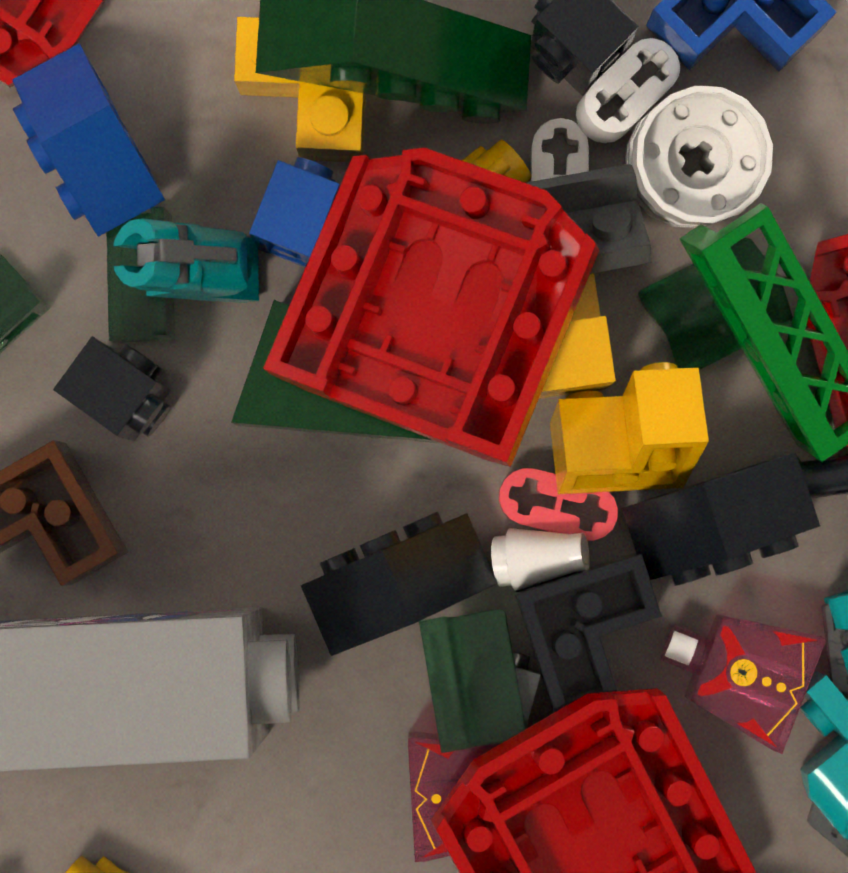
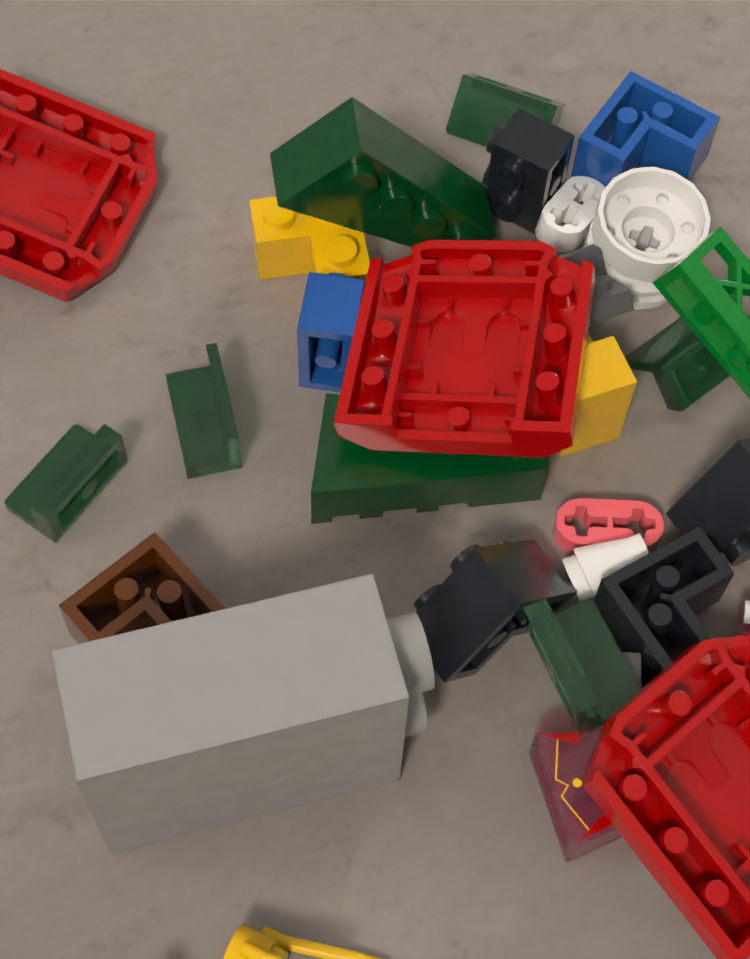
camera: 20 degrees left, 25 degrees down
(83, 138) = (147, 312): blue brick -> none
(116, 389) = (201, 490): black brick -> none
(190, 261) = (249, 365): teal plate -> none
(633, 439) = (665, 447): yellow brick -> none

